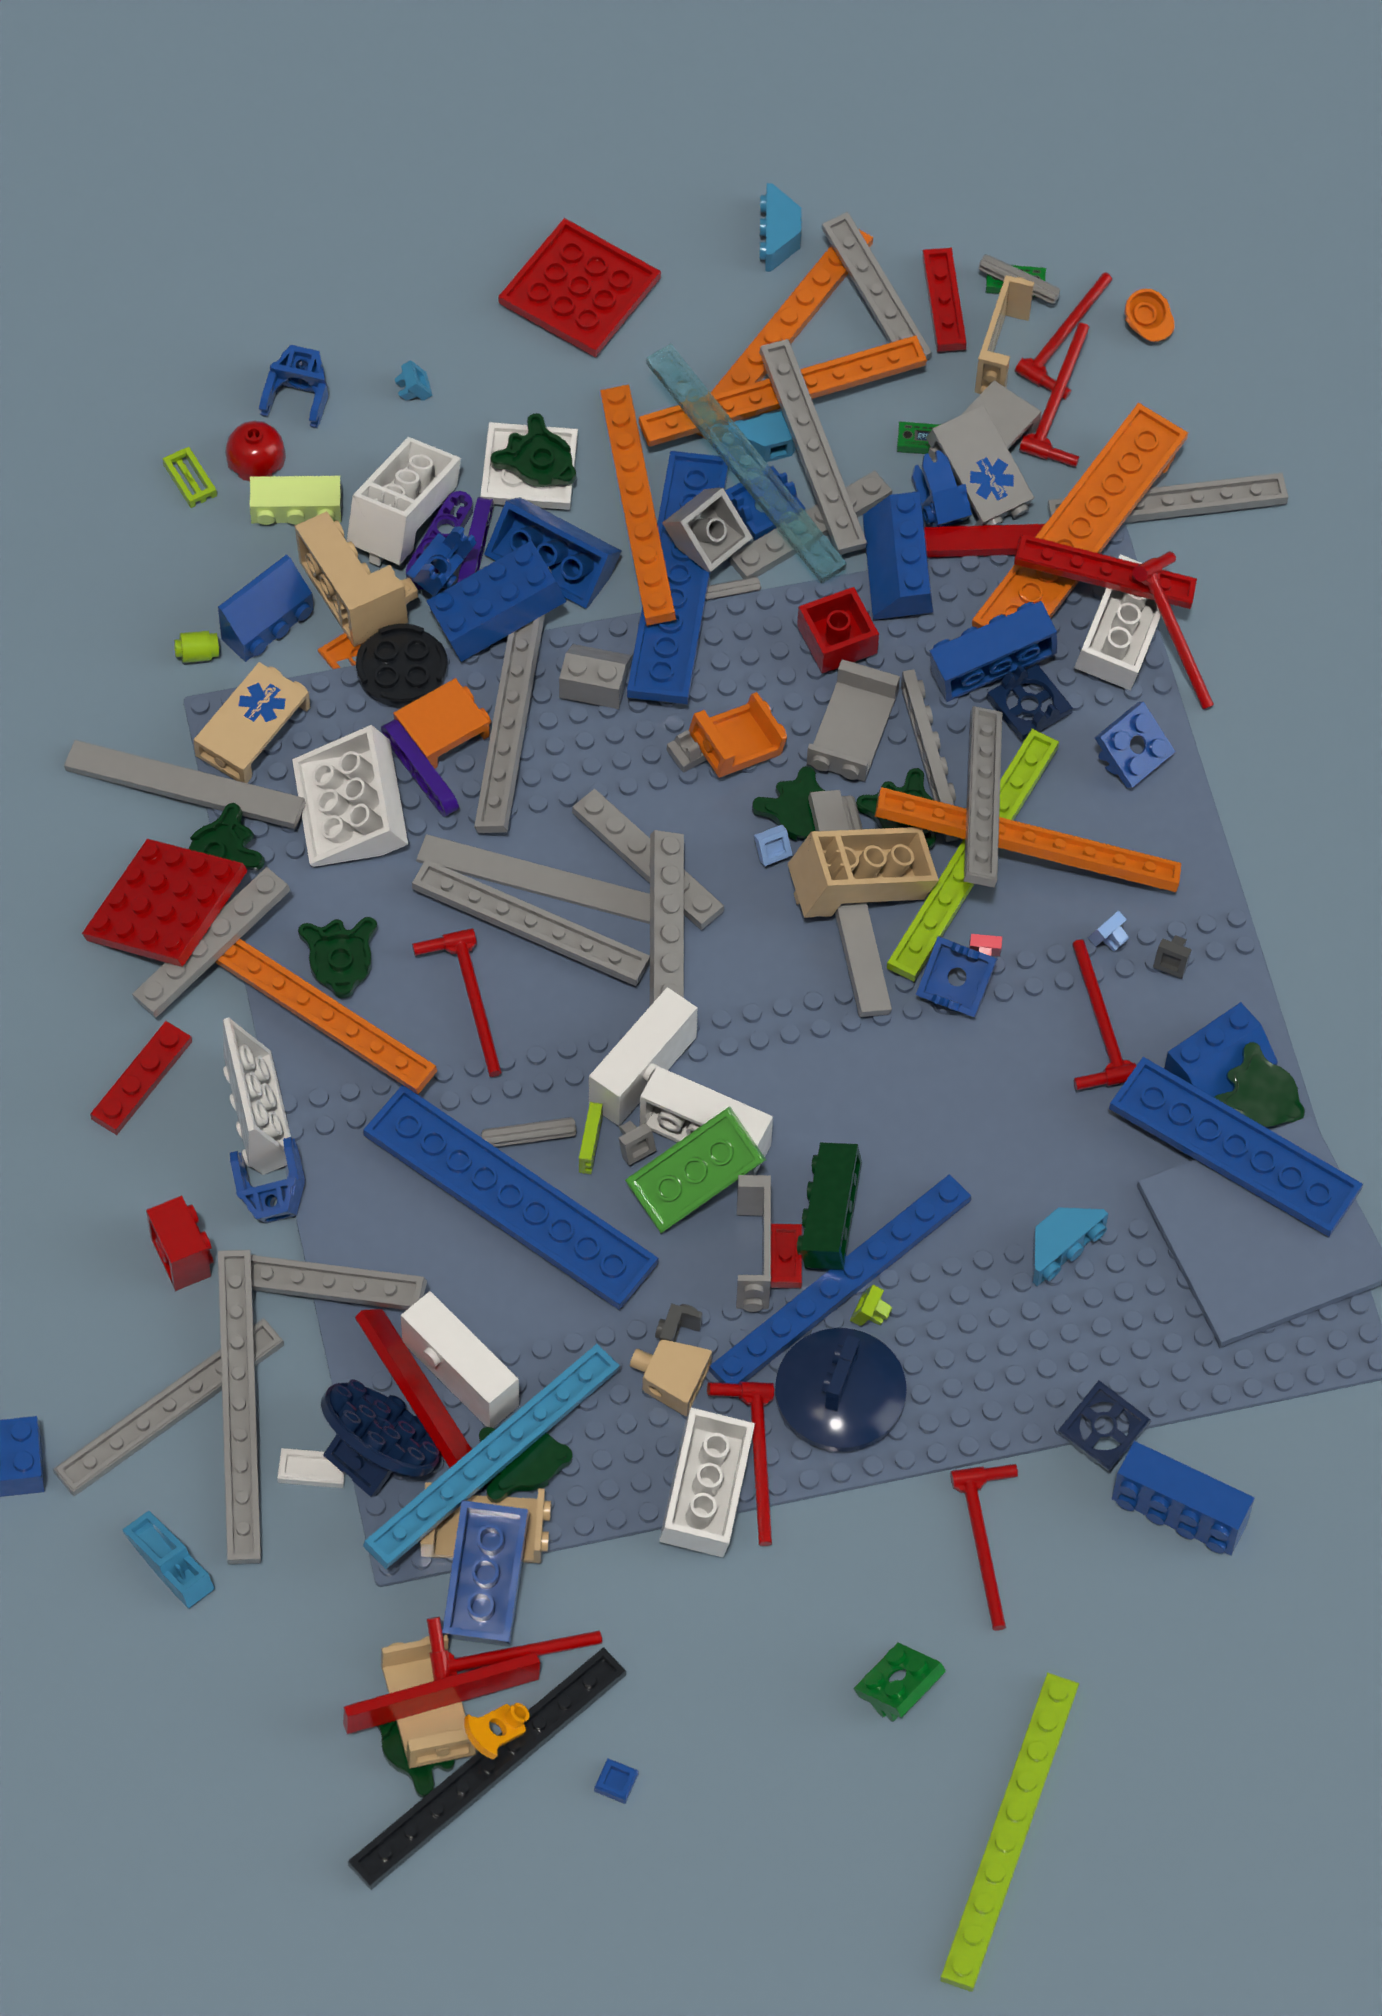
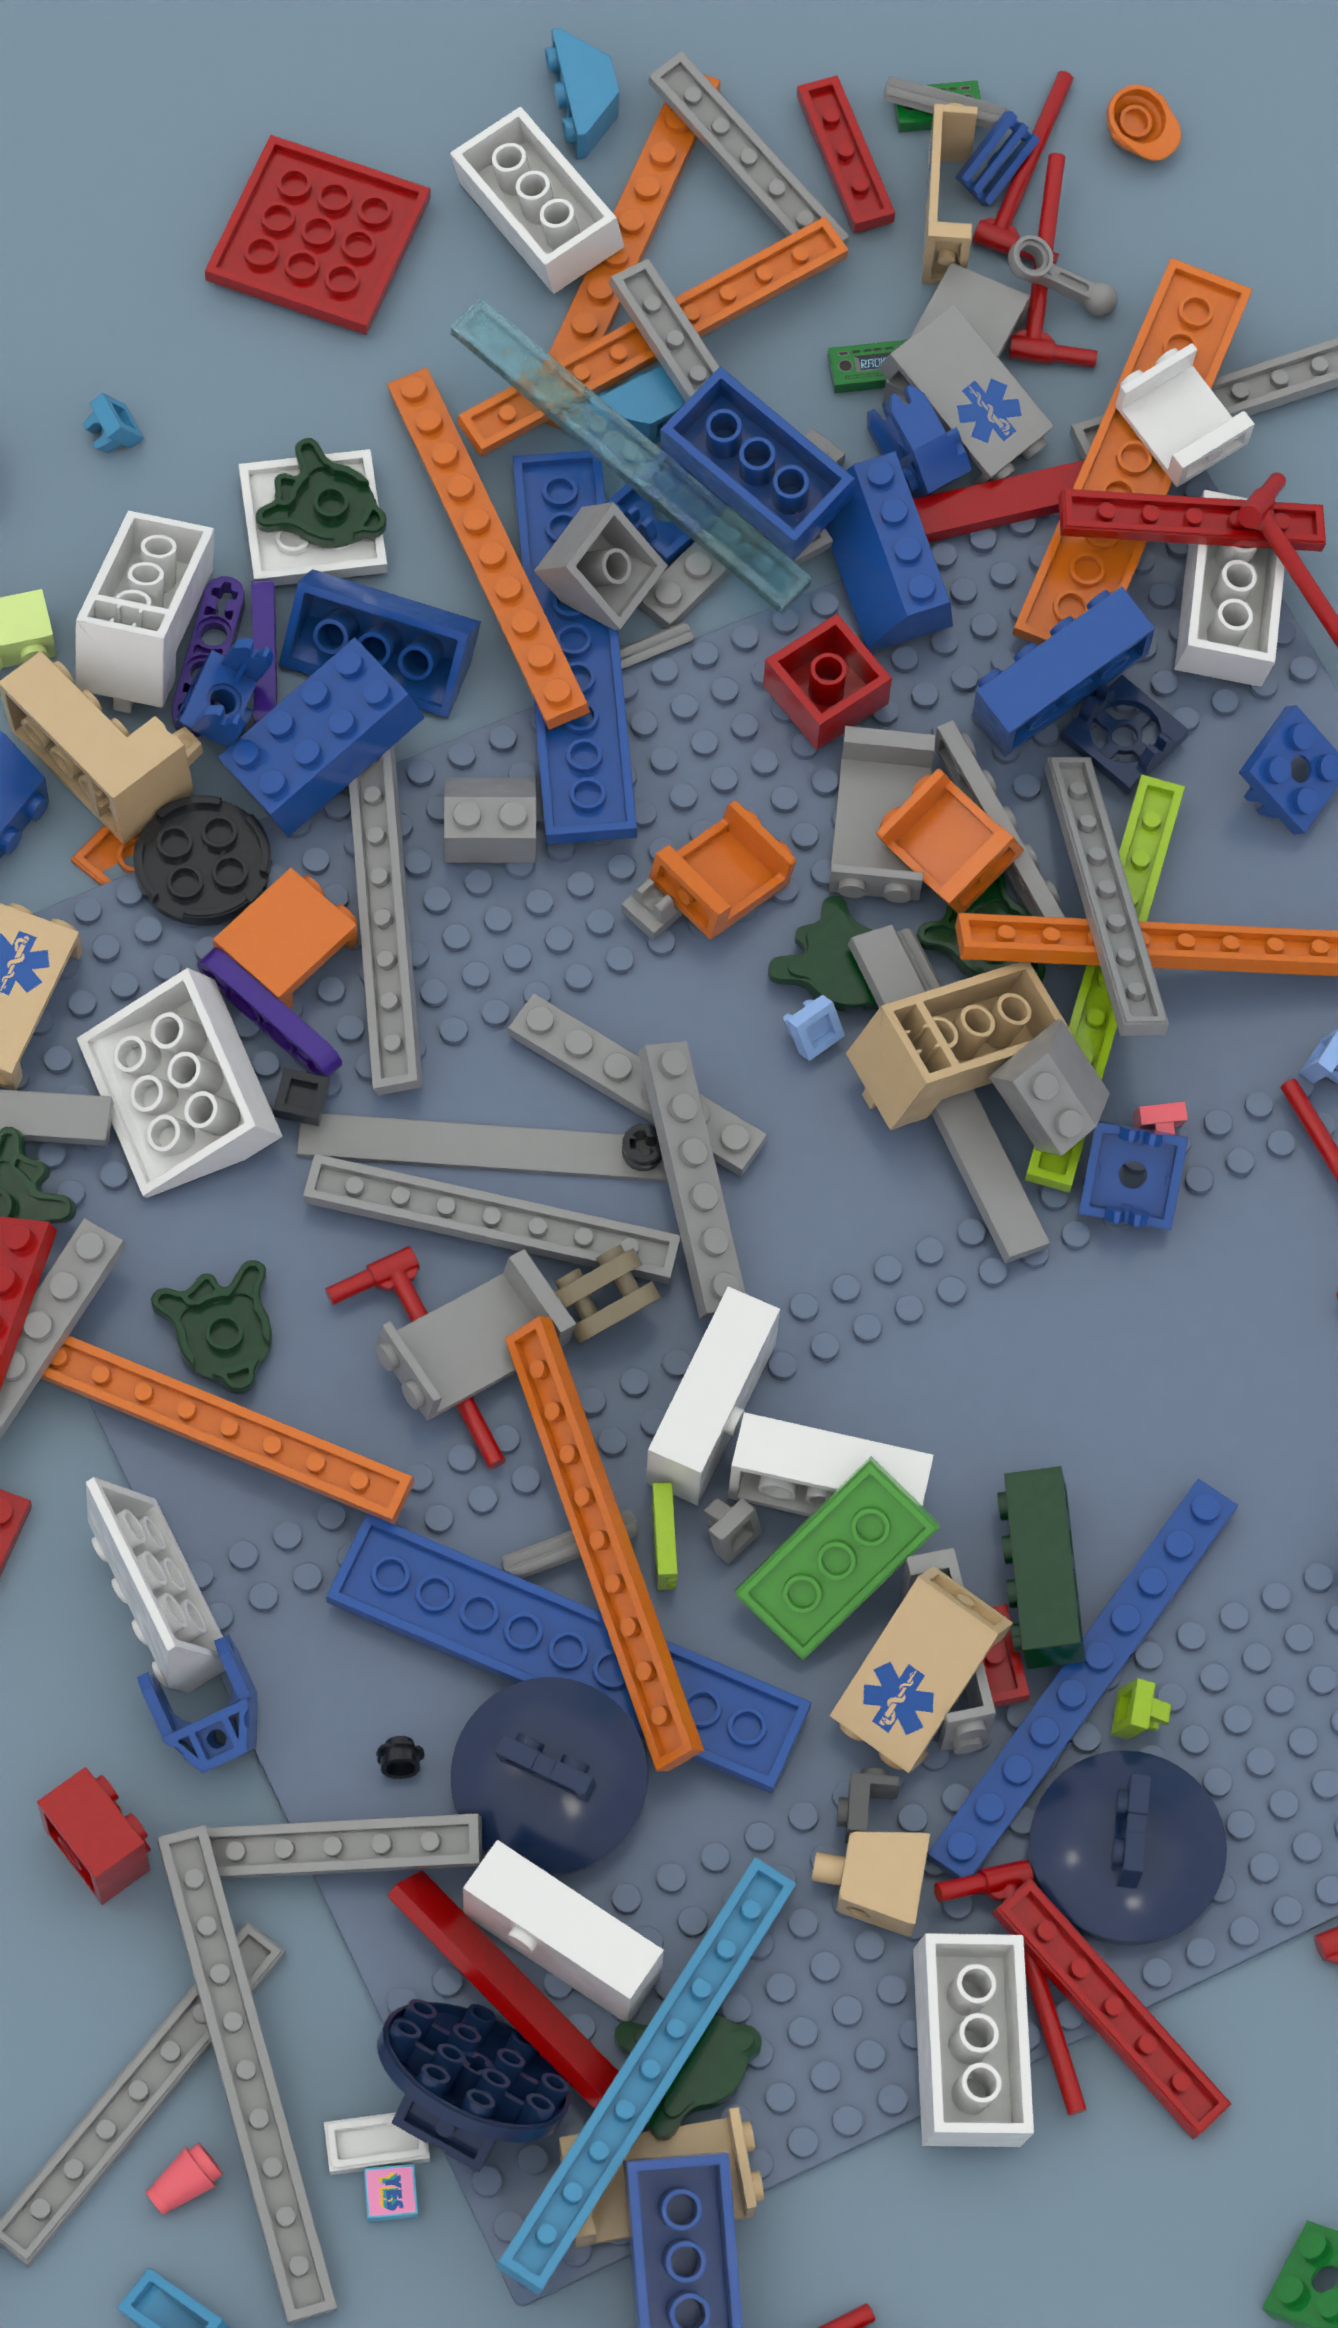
camera: 15 degrees left, 5 degrees up
(184, 1463) = (184, 2179): none -> coral cone
(313, 1500) = (390, 2193): none -> tile
(385, 1238) = (400, 1757): none -> black plate
(427, 823) = (301, 1097): none -> black plate
(480, 1264) = (551, 1773): none -> dark blue bracket
(500, 993) = (464, 1344): none -> light grey panel
(548, 1132) = (604, 1545): none -> orange plate
(600, 965) = (616, 1267): none -> dark tan brick
(632, 895) = (634, 1158): none -> black bush
(728, 290) = (537, 200): none -> white brick
(728, 1245) = (918, 1669): none -> tan panel
(804, 1485) = (1112, 2009): none -> red tile
(825, 481) = (757, 463): none -> blue brick
(890, 743) = (948, 841): none -> orange panel
(914, 909) = (1052, 1090): none -> light grey slope
(1067, 315) = (1009, 168): none -> blue tile
(1089, 422) = (1098, 297): none -> light grey piece
(1117, 504) = (1180, 416): none -> white panel

